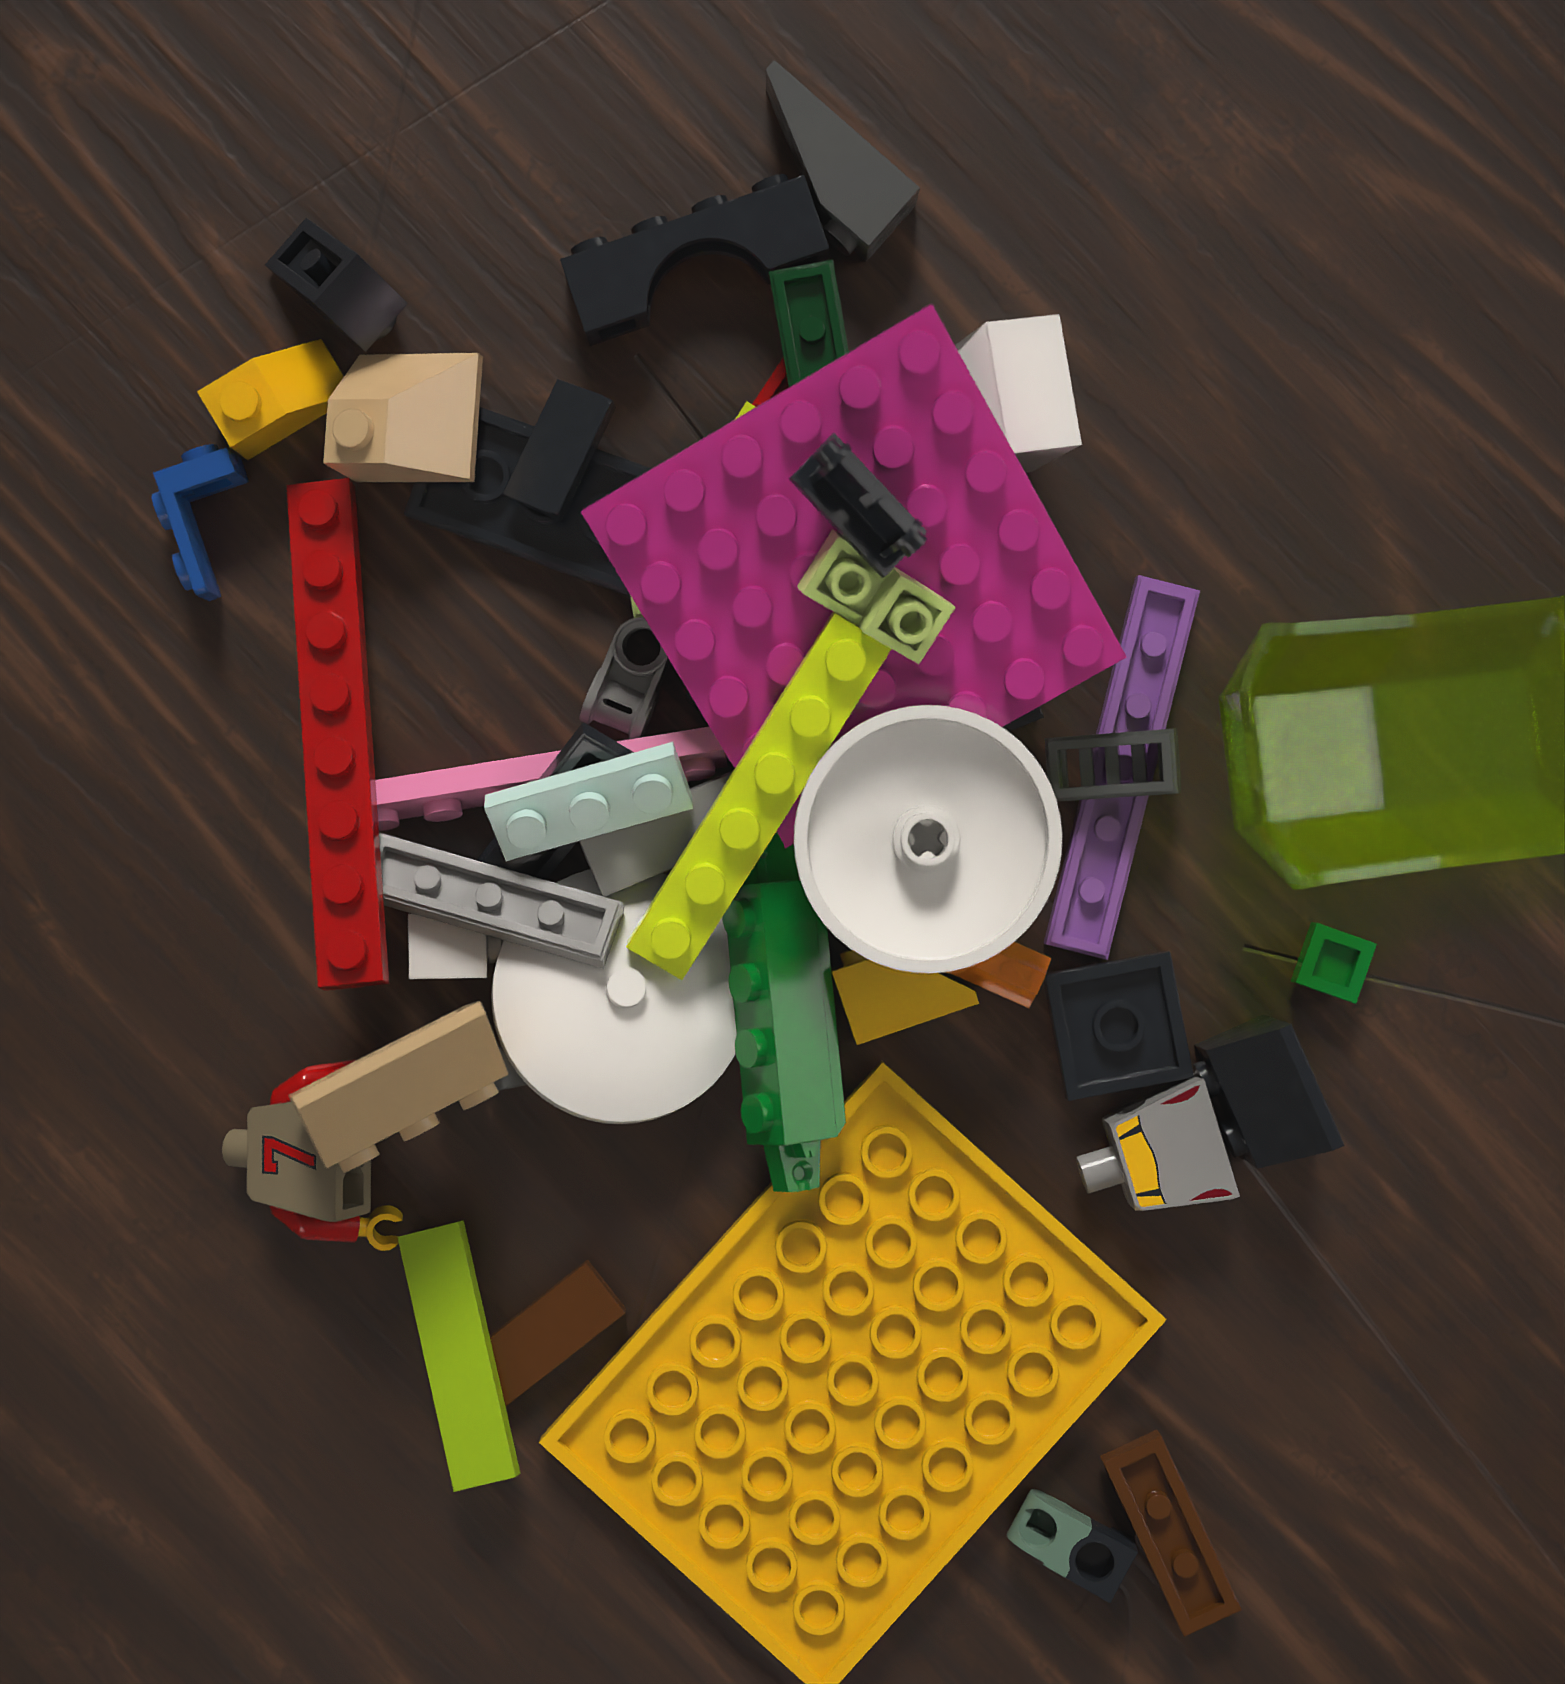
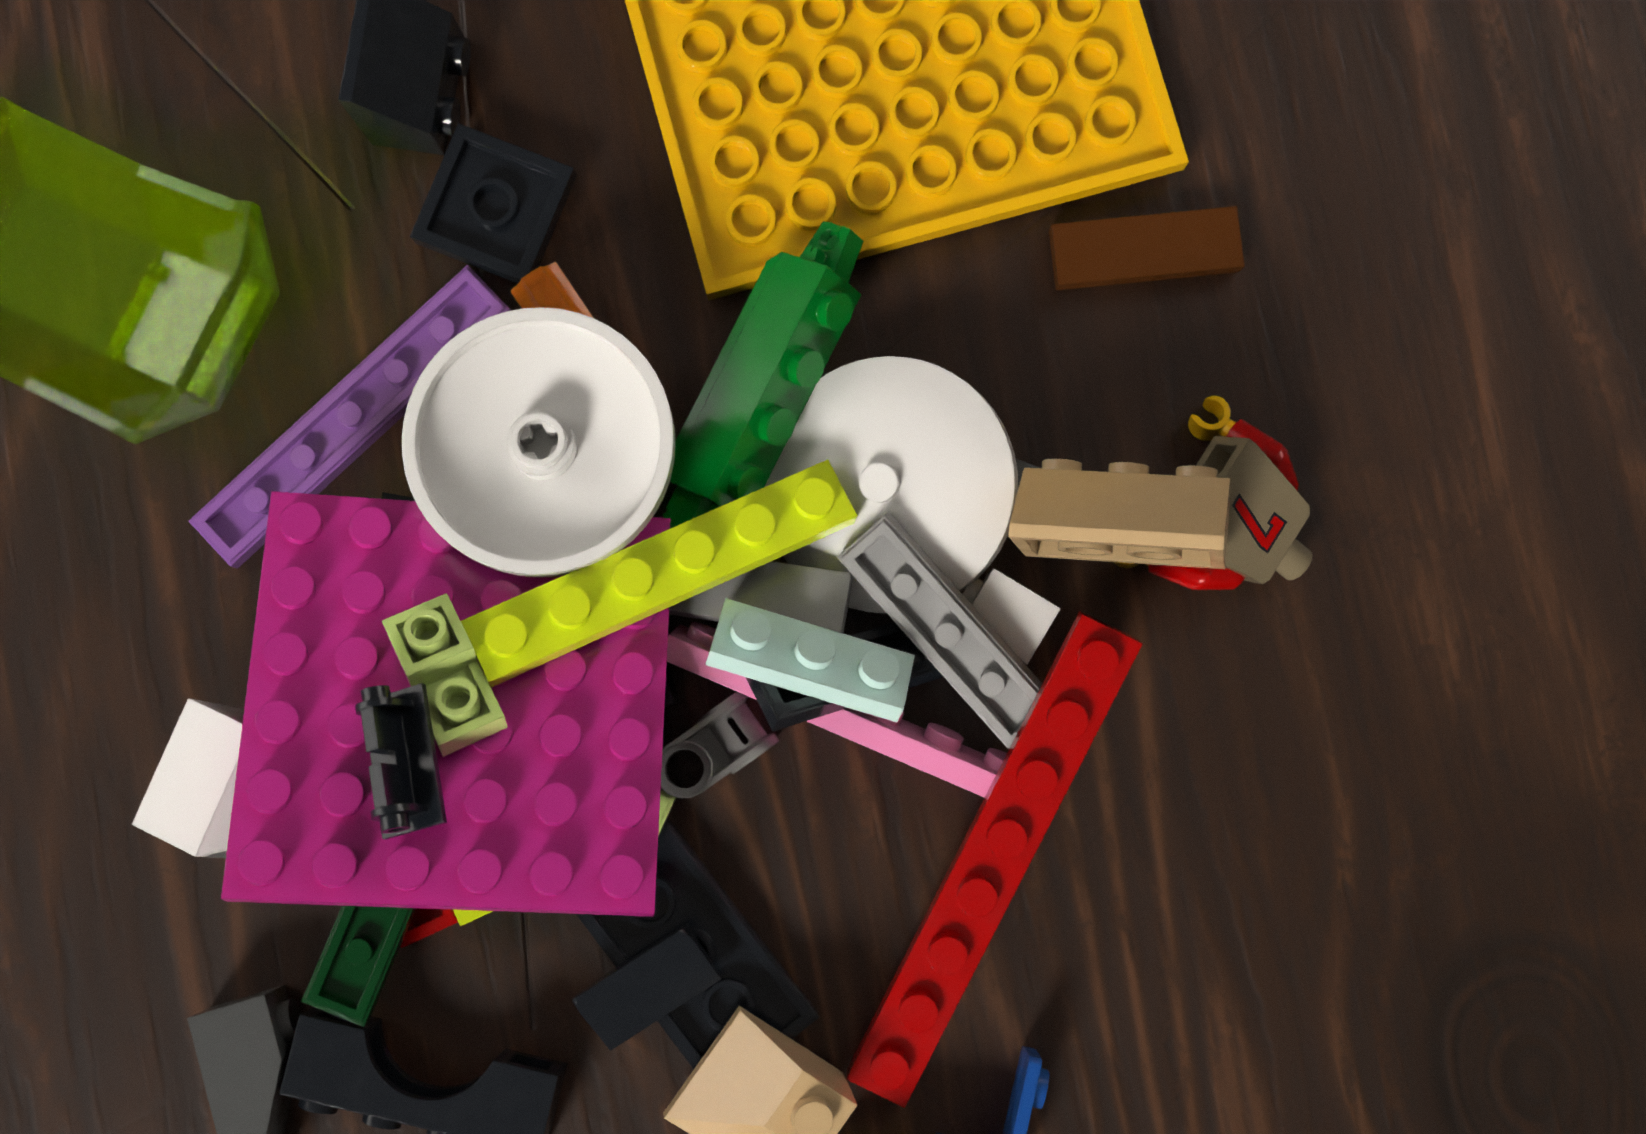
camera: 145 degrees left, 5 degrees down
(459, 1356) = (1212, 272): lime tile -> none
(890, 1000) = (673, 340): yellow slope -> none
(1163, 1150) = (522, 80): light grey torso -> none
(1168, 762) = (304, 395): dark grey slope -> none
(1333, 962) = (283, 146): green plate -> none

